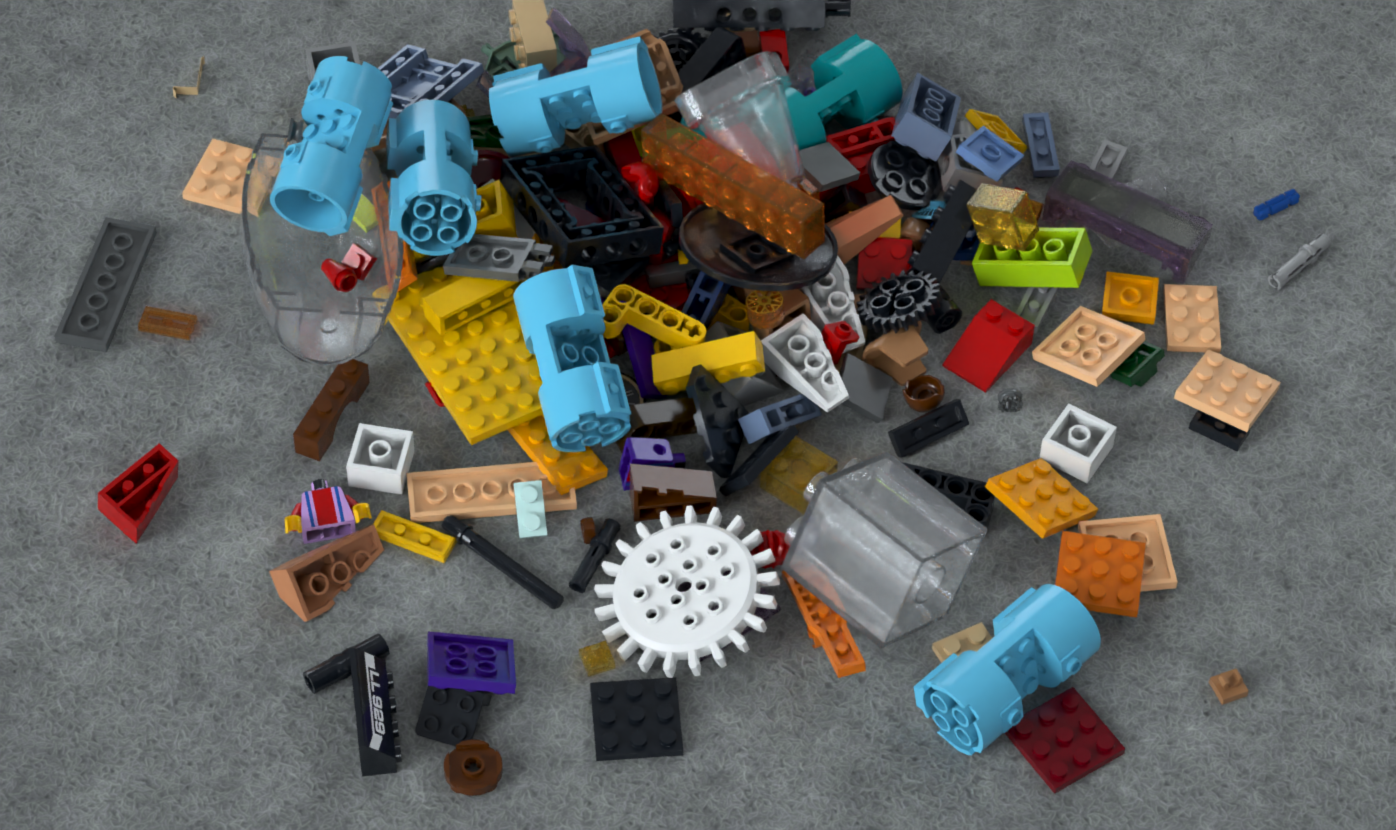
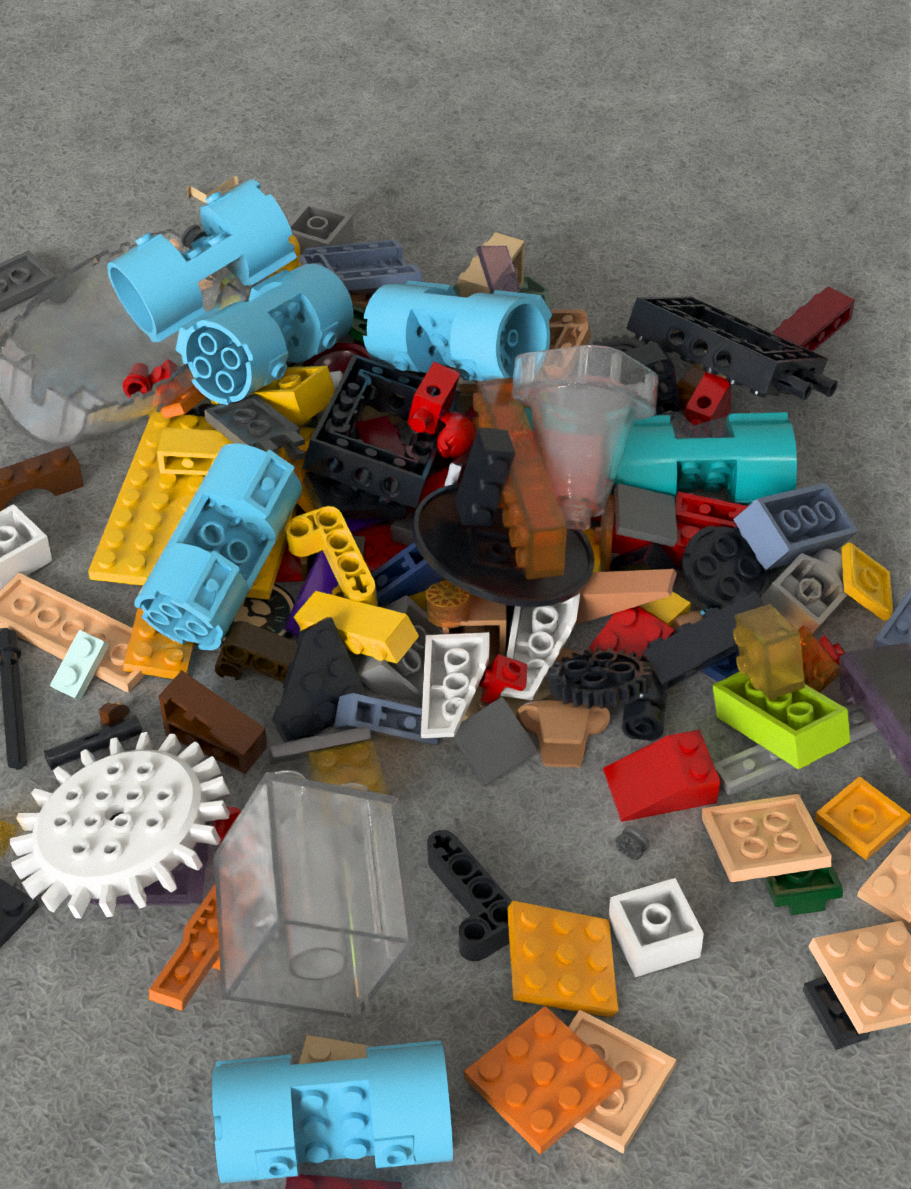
camera: 40 degrees right, 5 degrees down
(610, 162) = (428, 409): none -> red torso
(647, 452) = (225, 680): dark purple torso -> none
(725, 200) = (484, 476): none -> black brick
(924, 393) = (549, 782): reddish brown hair -> none
(928, 428) = (521, 818): black plate -> none
(989, 154) = (825, 590): medium blue plate -> none

